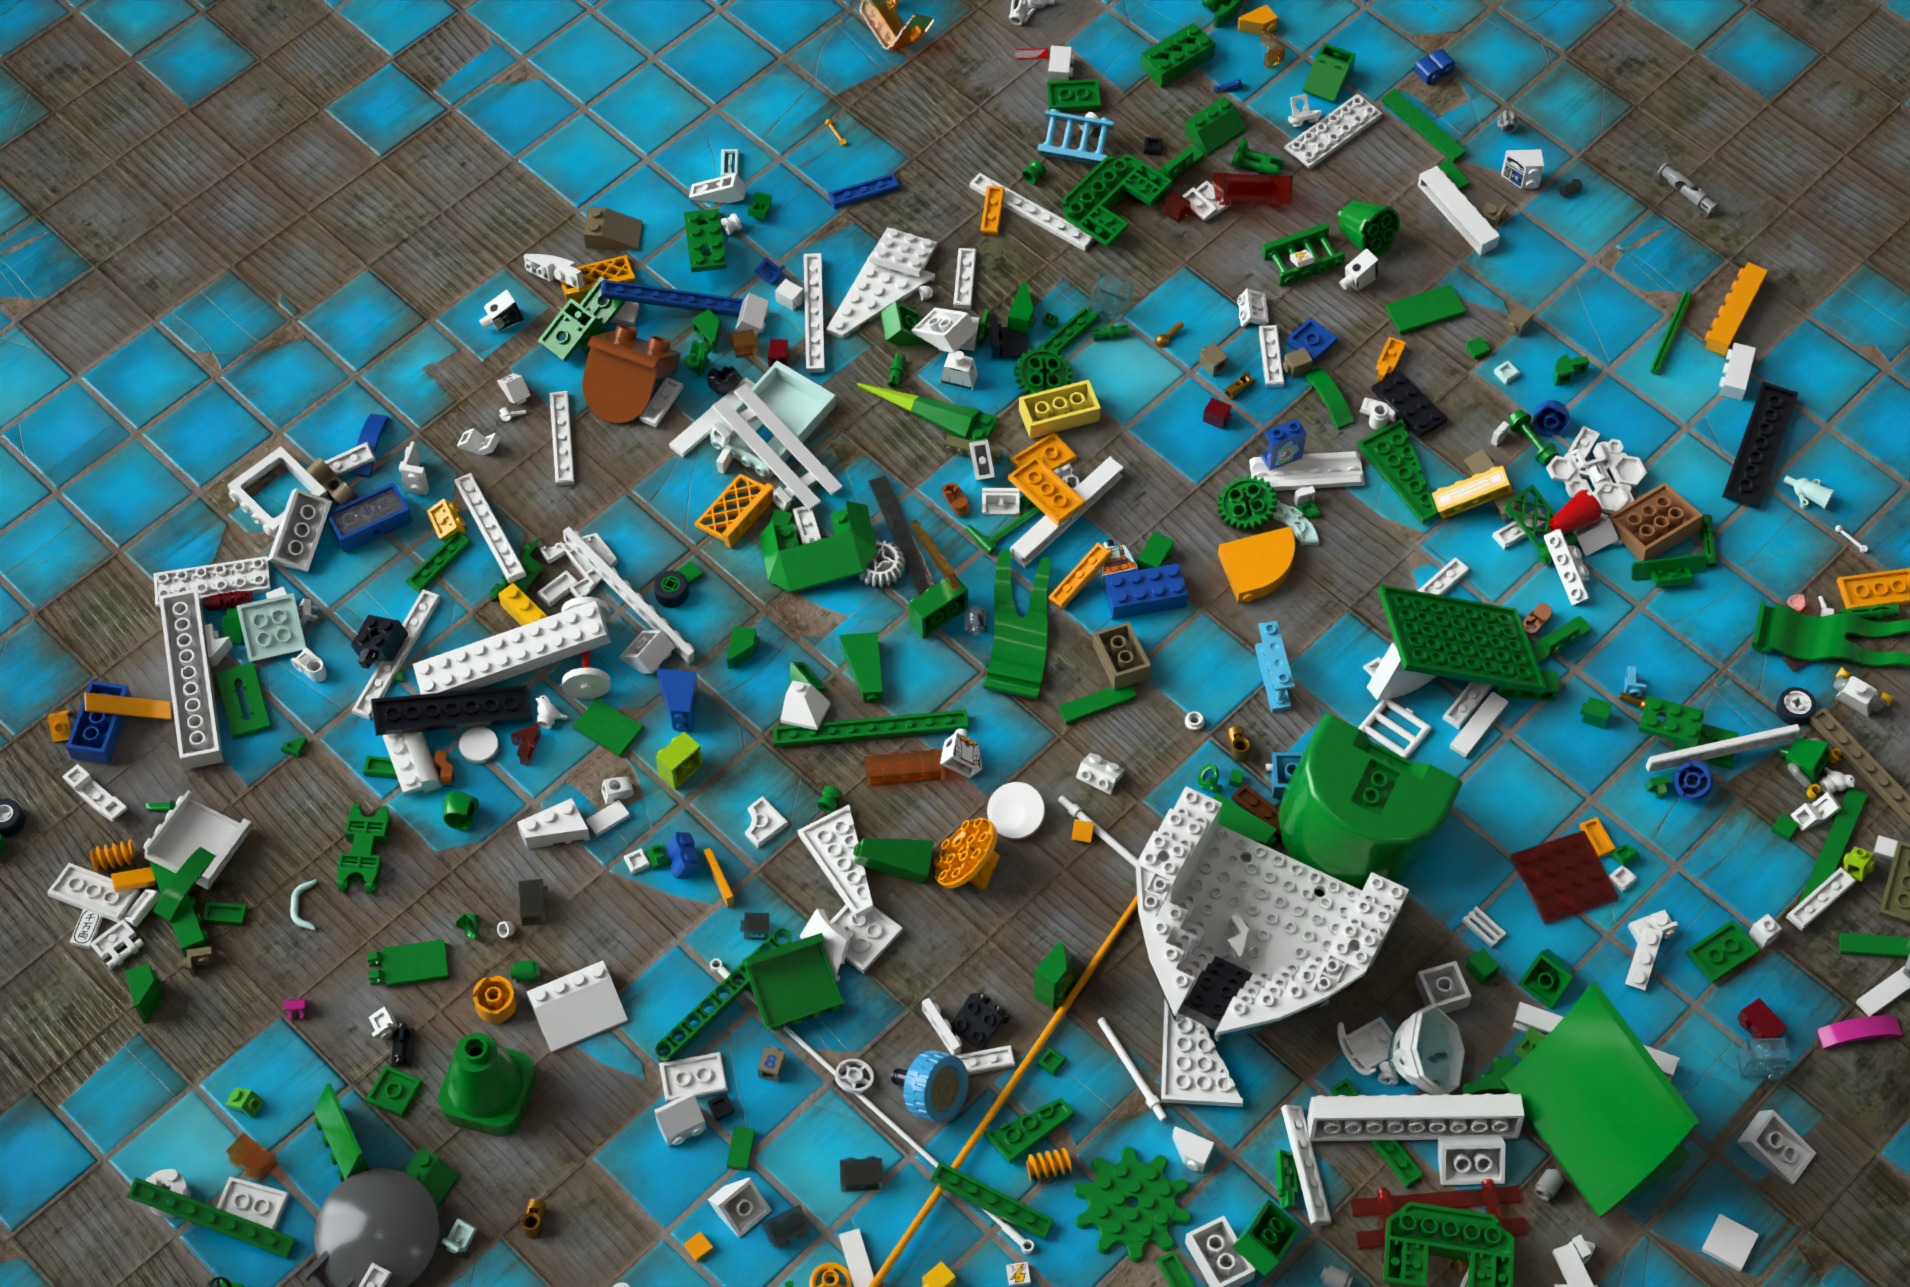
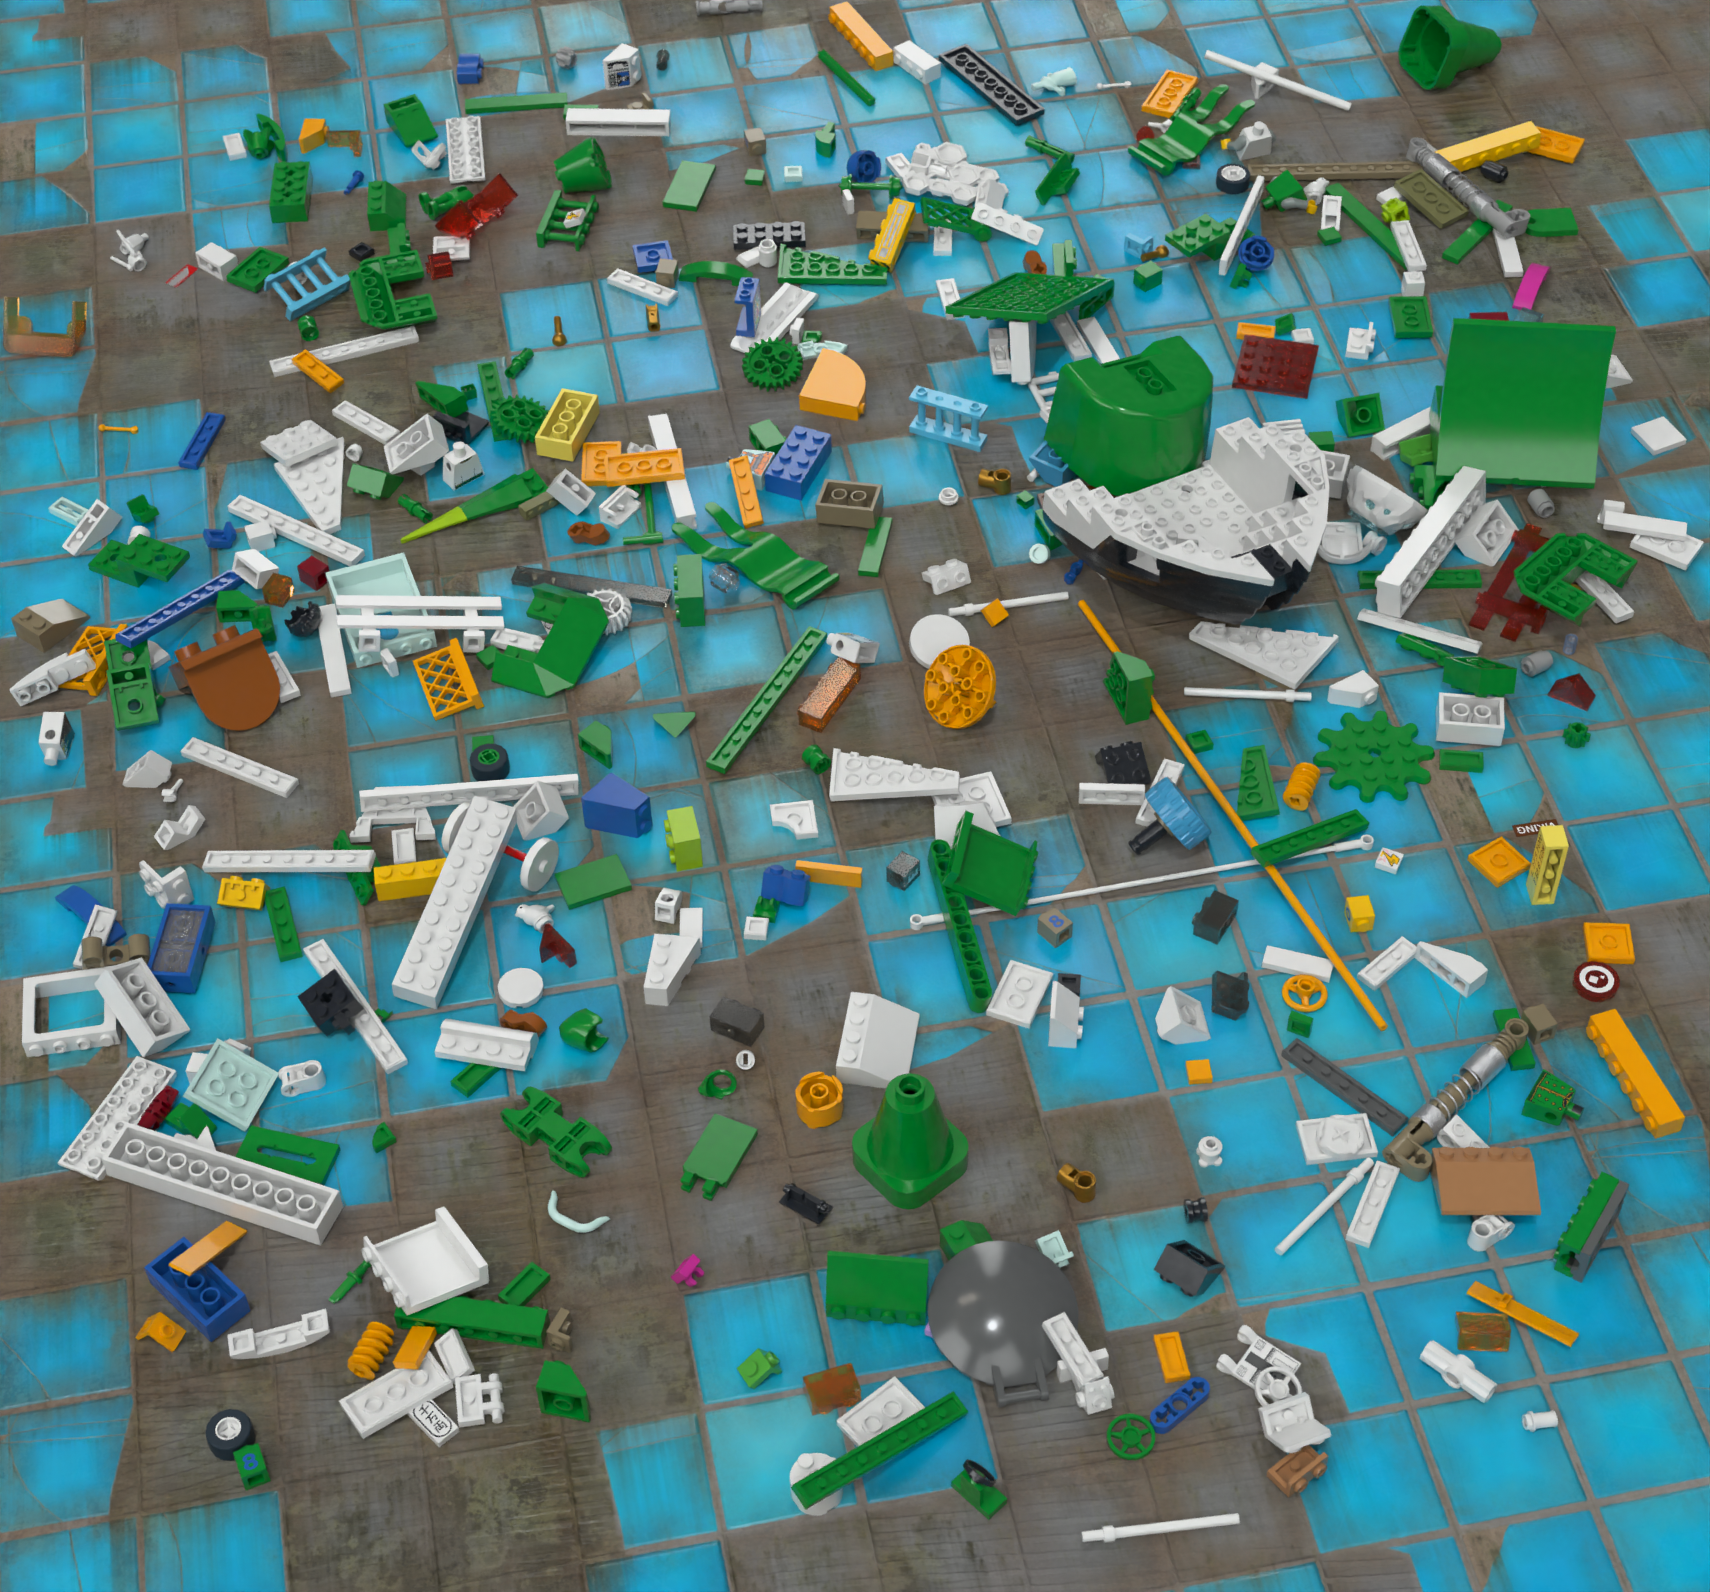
camera: 55 degrees left, 10 degrees down
(182, 883) = (472, 1292): green slope -> none
(383, 1023) = (769, 1204): white bracket -> none
(394, 1091) = (849, 1232): green tile -> none
(451, 710) = (469, 983): black plate -> none
(525, 971) = (805, 1062): green brick -> none
(741, 1148) = (1121, 993): green tile -> none
(804, 706) = (705, 729): white slope -> none
(854, 1076) = (1111, 876): white wheel -> none
(863, 660) = (700, 670): green slope -> none
(896, 857) = (921, 737): green slope -> none
(935, 555) = (644, 560): clear orange tile -> none
(1110, 296) = (491, 338): clear light blue brick -> none
(1211, 783) = (1022, 513): green piece -> none
(1213, 359) = (612, 317): dark tan brick -> none
(1217, 413) = (667, 340): dark red brick -> none
(1252, 308) = (586, 273): white bracket -> none
(1361, 271) = (620, 202): white torso -> none
(1389, 357) = (715, 224): light orange hinge -> none
(1577, 513) = (969, 187): red cone -> none
(1644, 958) = (1386, 355): white plate -> none
(1656, 522) = (1011, 162): medium nougat slope -> none

